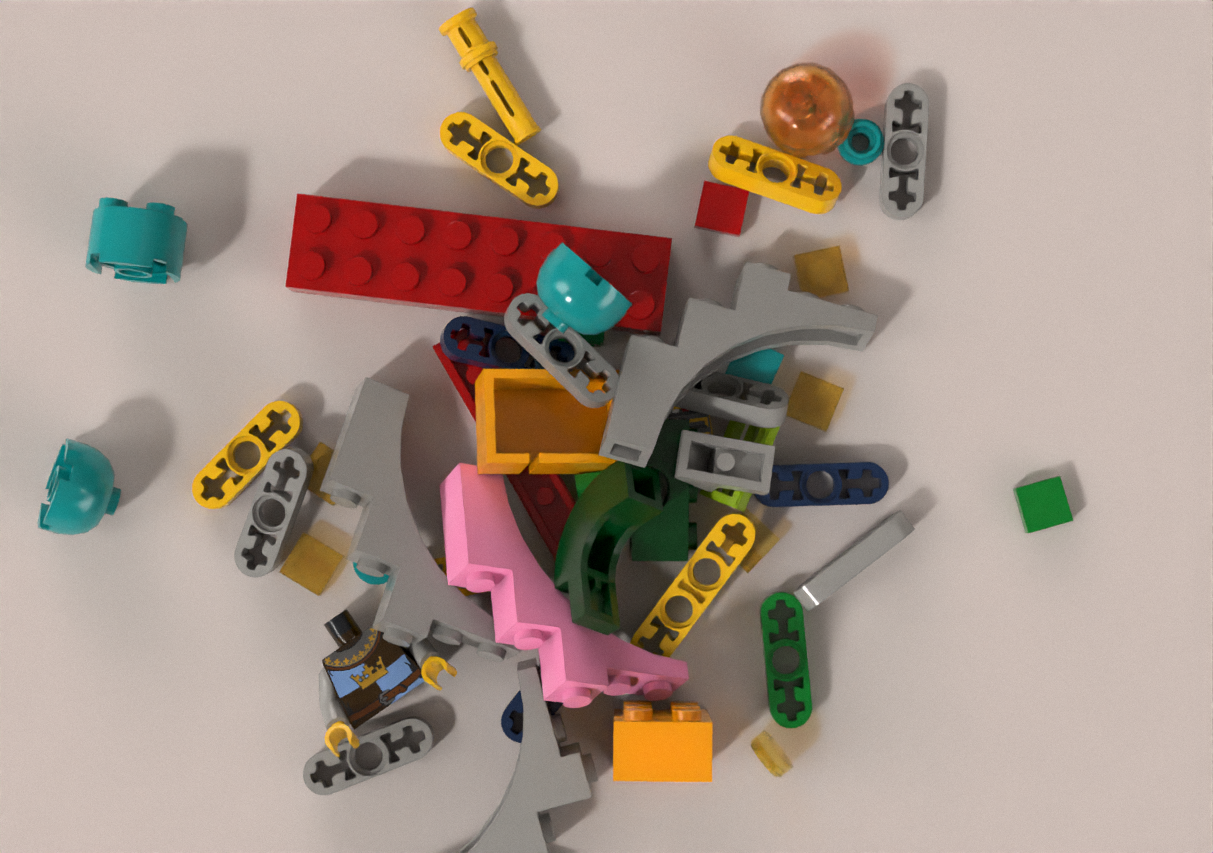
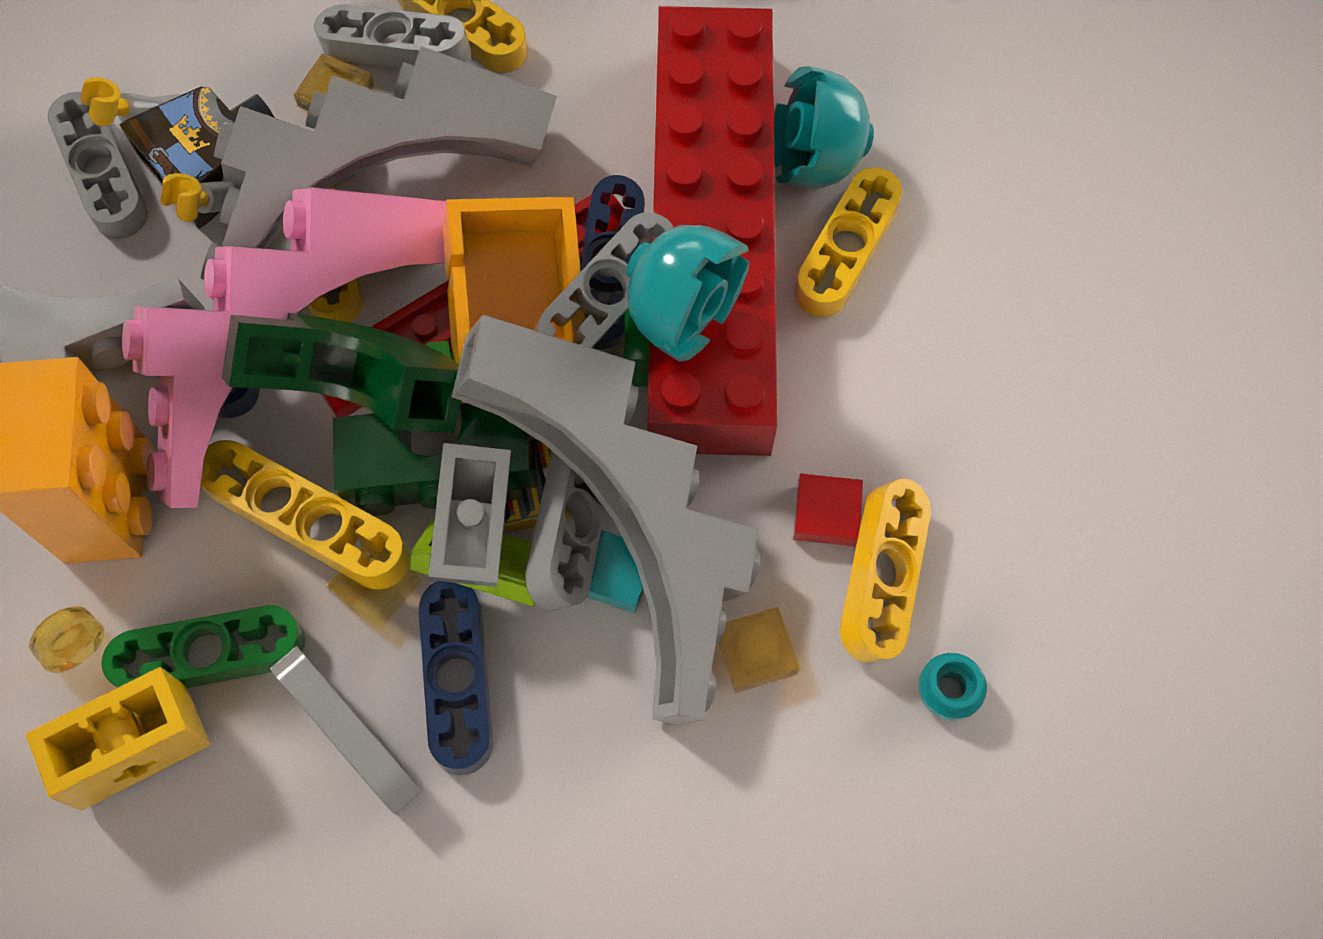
camera: 75 degrees right, 20 degrees down
(407, 170) = (820, 129): none -> teal cylinder
(476, 53) = (972, 206): yellow pin -> none
(807, 110) = (986, 599): clear orange cylinder -> none
(813, 401) = (574, 656): clear yellow tile -> none
(852, 709) = (117, 739): none -> yellow brick
(894, 117) = (997, 730): light grey beam -> none

